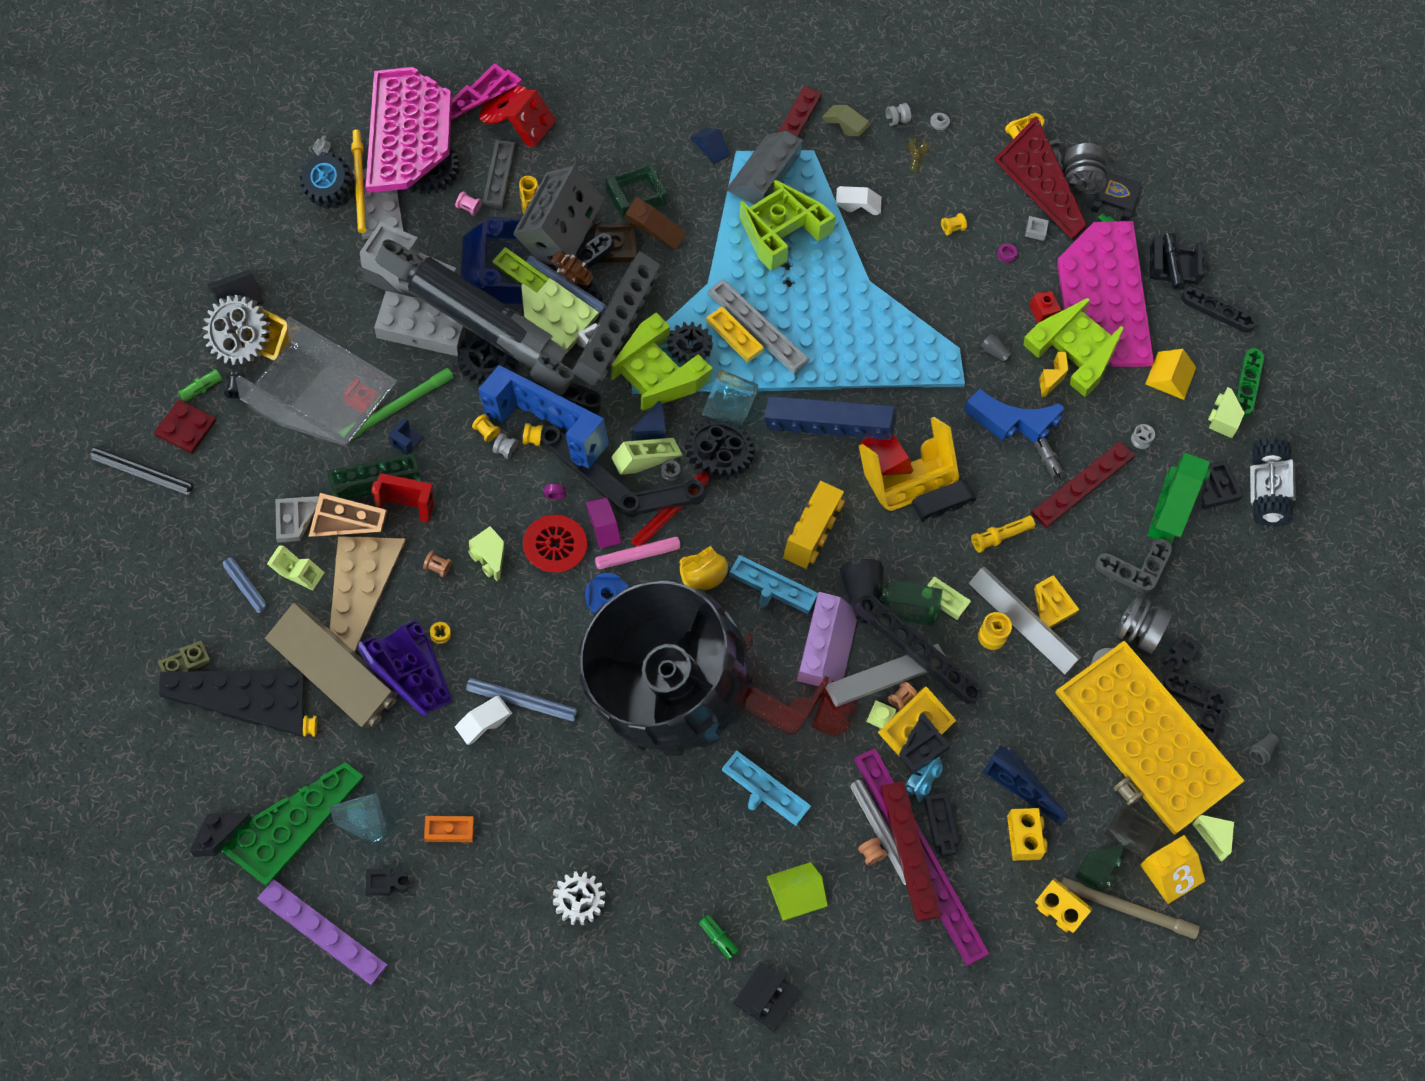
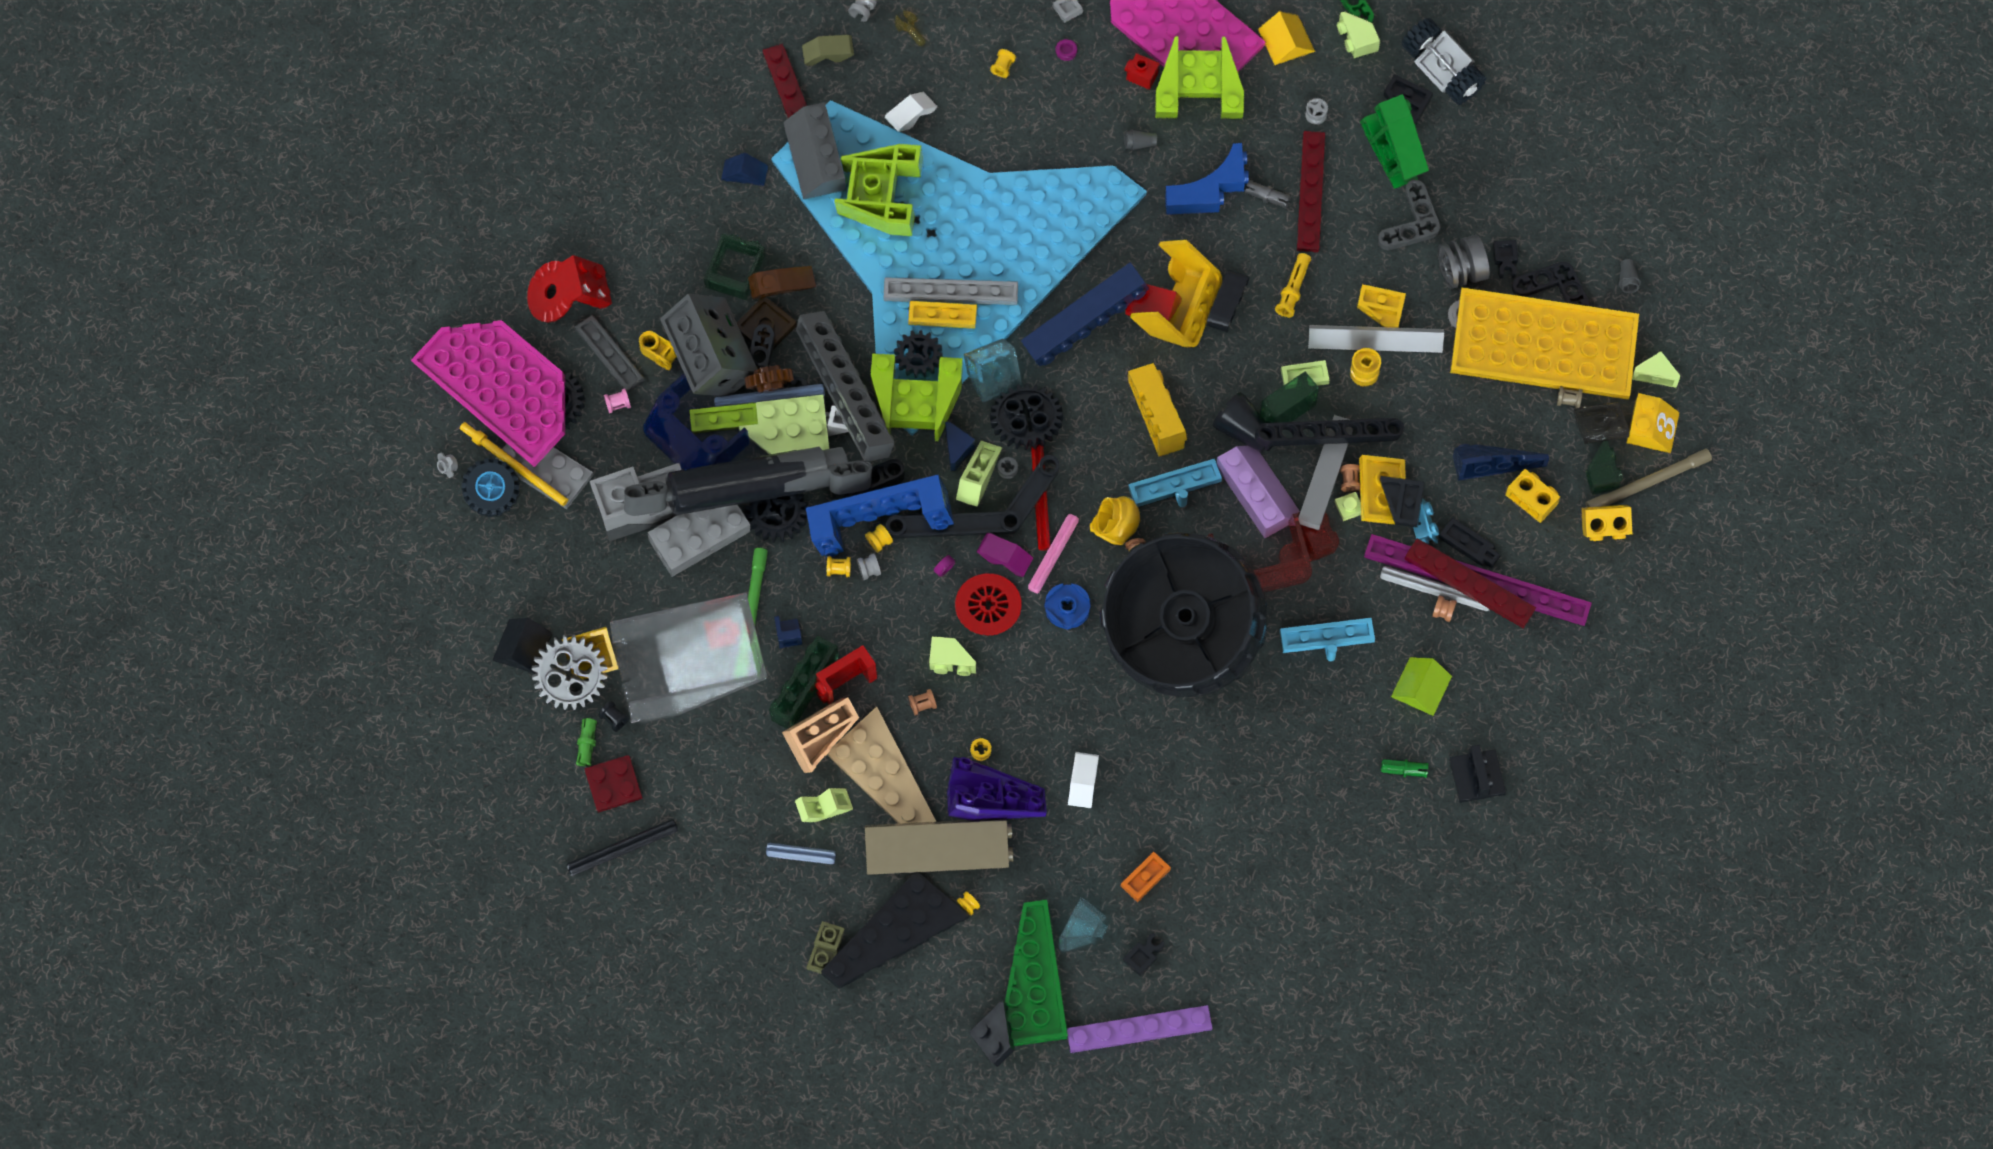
camera: 35 degrees left, 5 degrees up
(293, 517) = (777, 770): light grey wing -> none
(488, 86) = (519, 287): dark pink wedge -> none
(522, 699) = (1092, 739): sand blue axle -> none
(587, 900) = (1294, 828): white gear -> none
(1052, 378) = (1205, 128): yellow slope -> none

